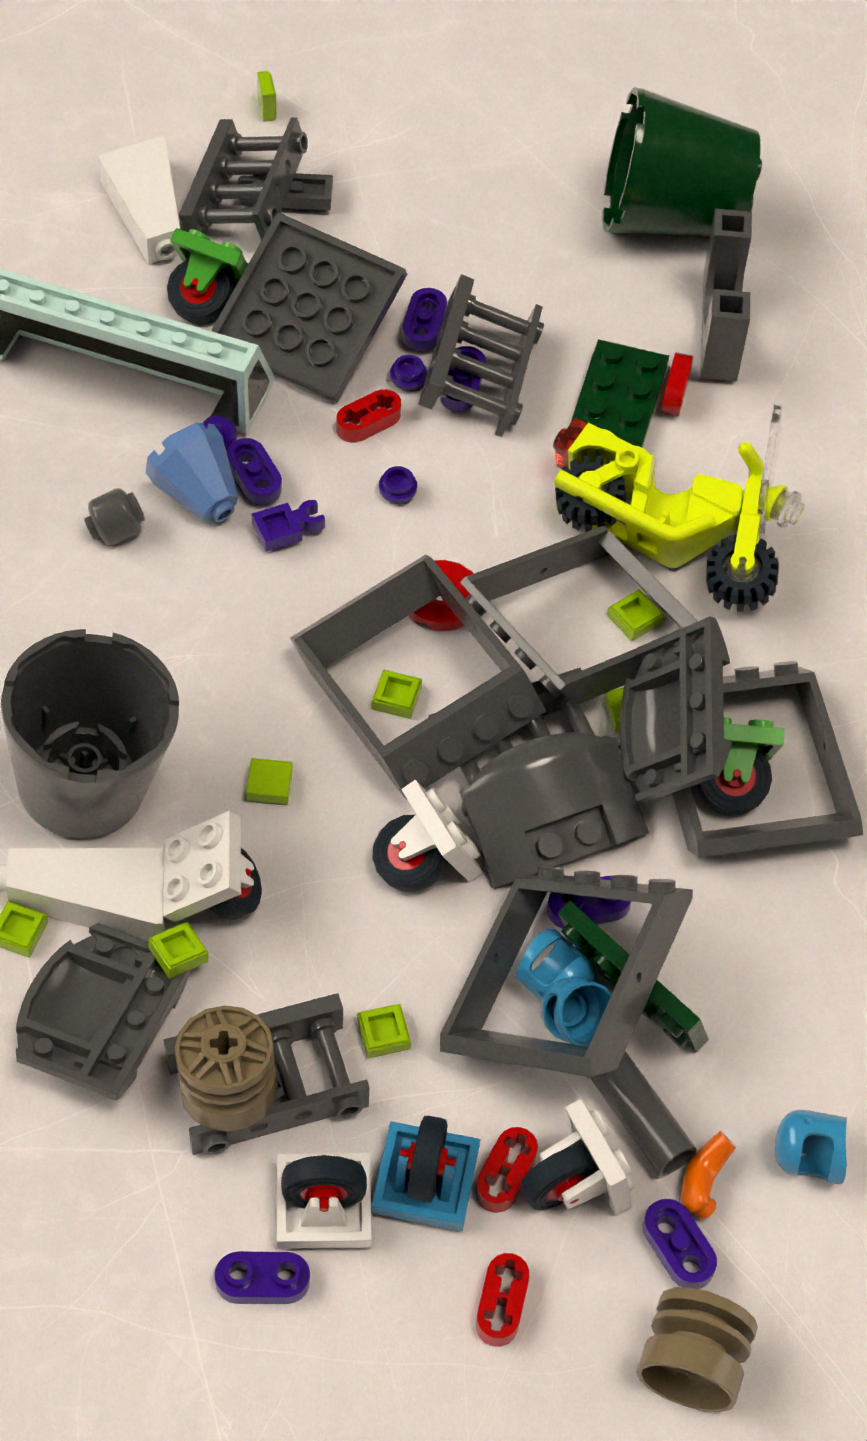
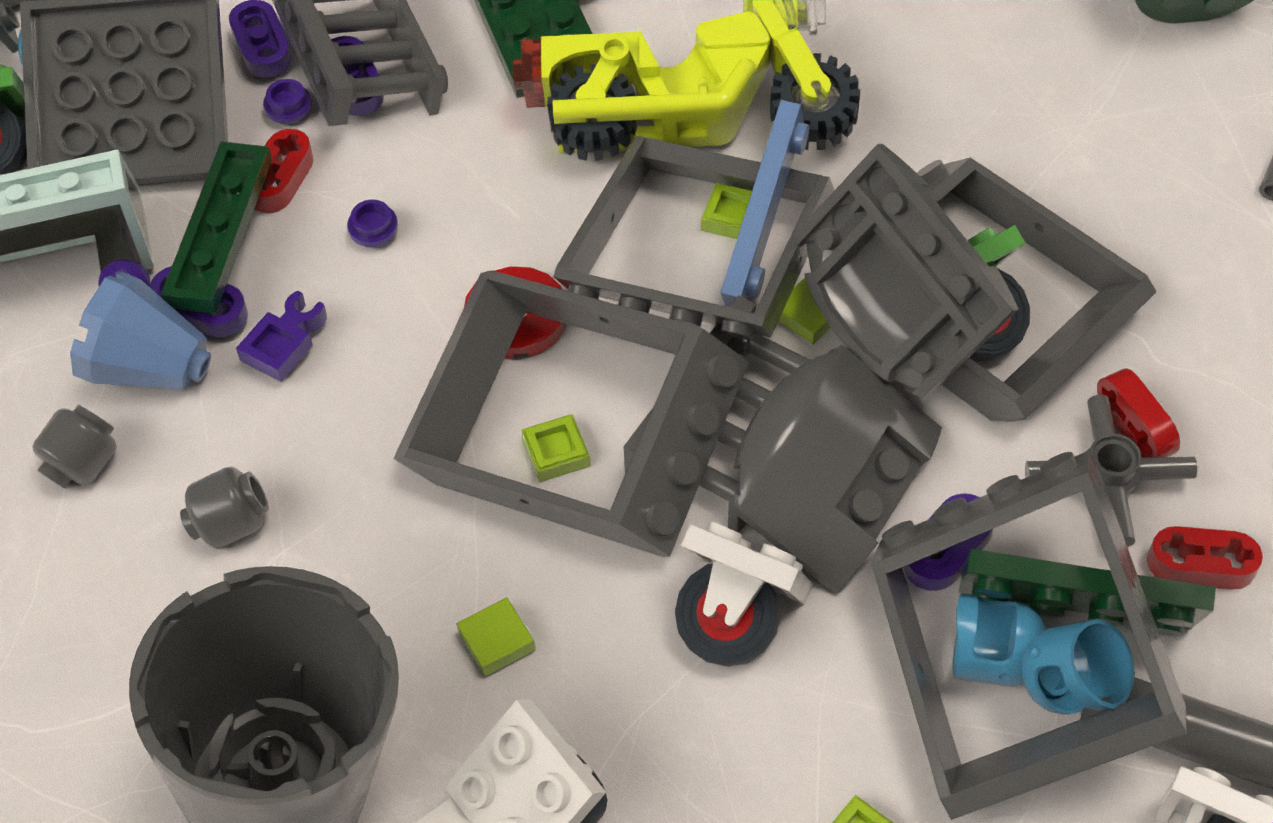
camera: 30 degrees left, 0 degrees up
(172, 606) = (224, 507): none -> dark grey head
(296, 429) = (217, 227): none -> dark green plate
(649, 614) = (786, 138): none -> medium blue plate
(732, 938) = (1123, 456): none -> dark grey bar
(743, 1015) = (1204, 557): none -> red beam
(779, 904) = (1139, 414): none -> red beam

